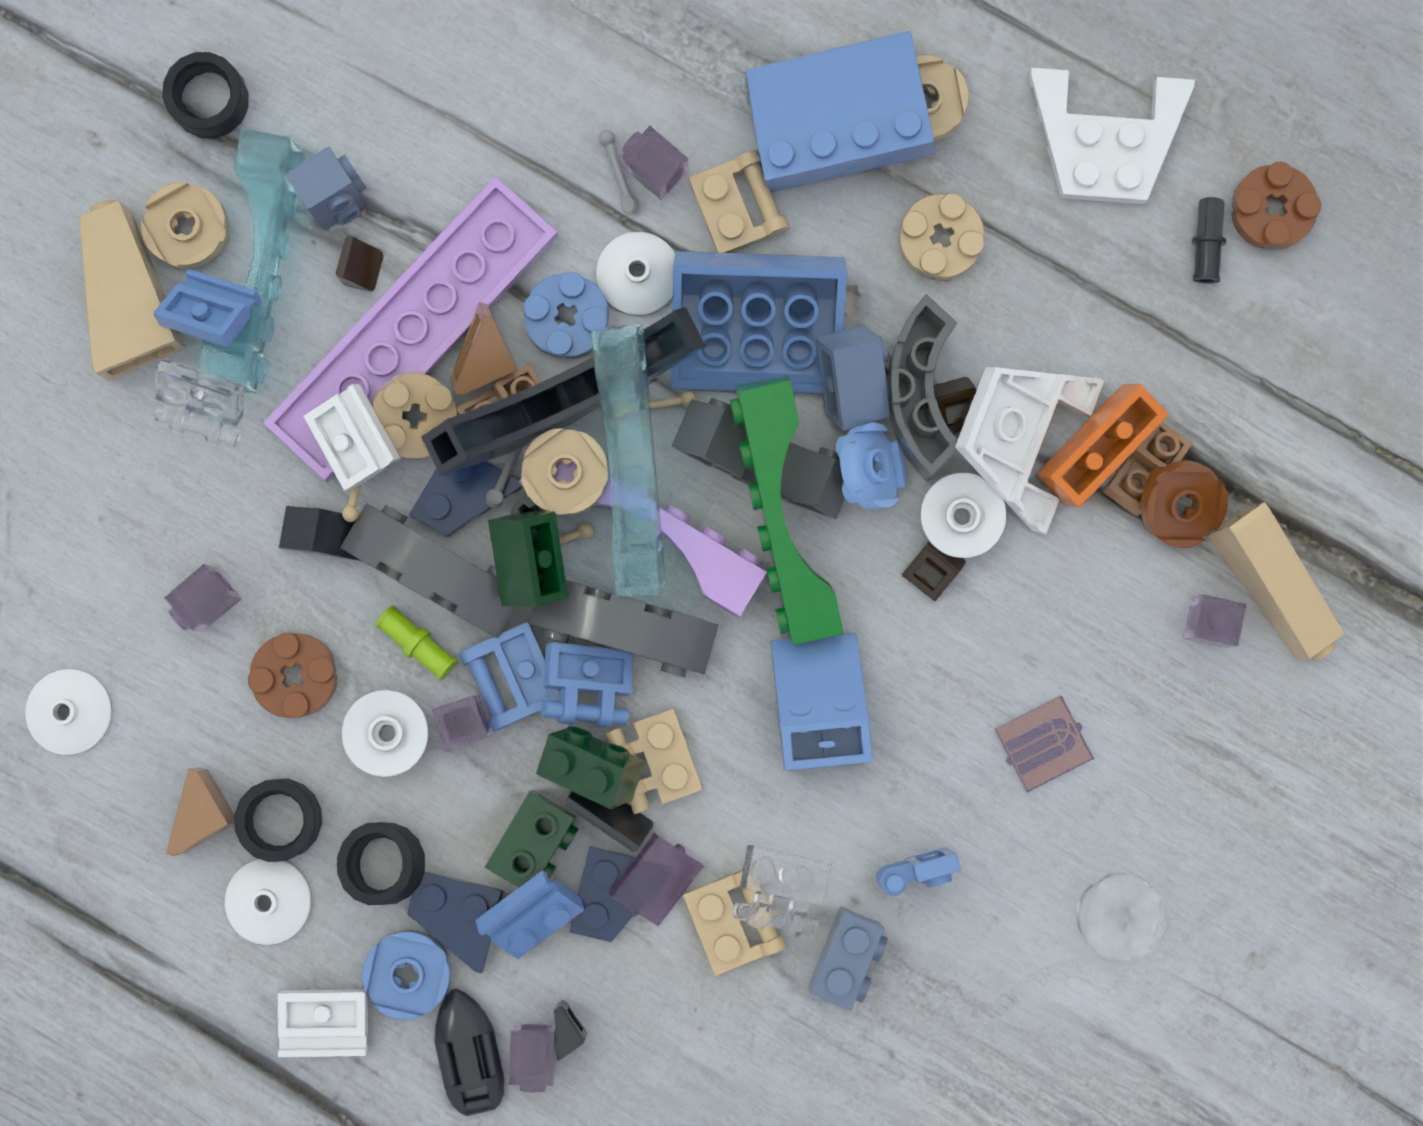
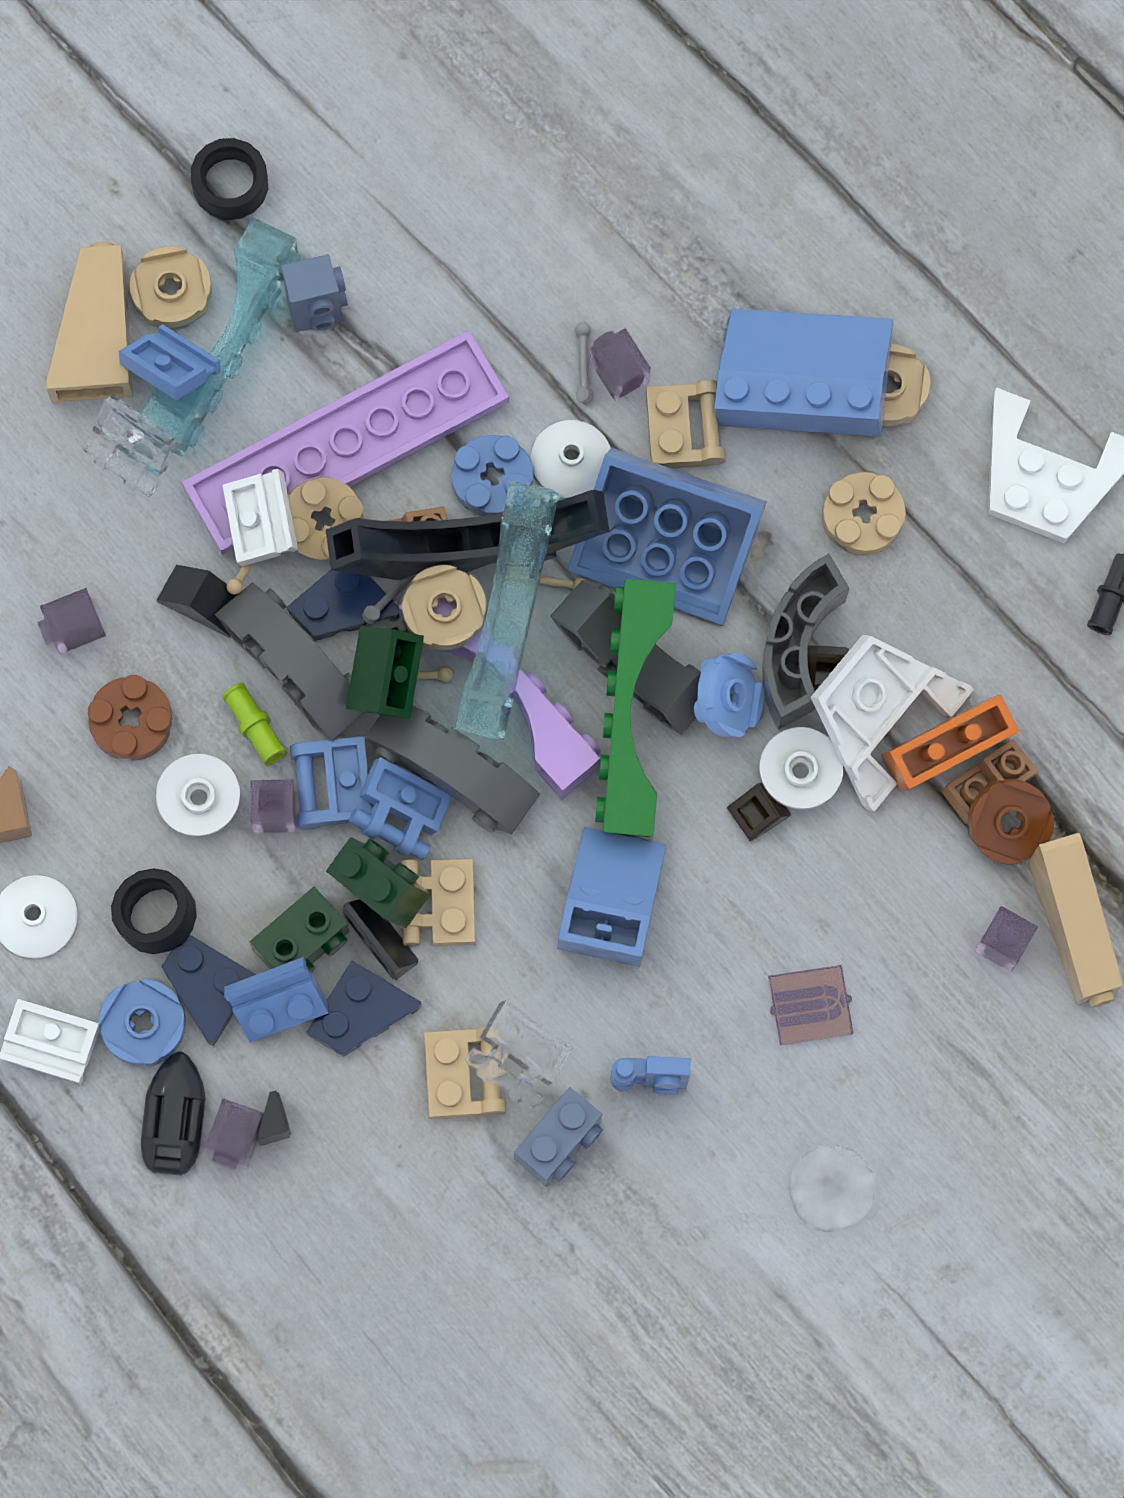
camera: 15 degrees right, 10 degrees down
(245, 825) = (57, 814): black tyre -> none
(359, 264) = (317, 370): dark brown slope -> none
(482, 355) = (404, 484): medium nougat slope -> none
(656, 879) = (404, 1007): clear purple piece -> none
(854, 376) = (739, 608): sand blue brick -> none

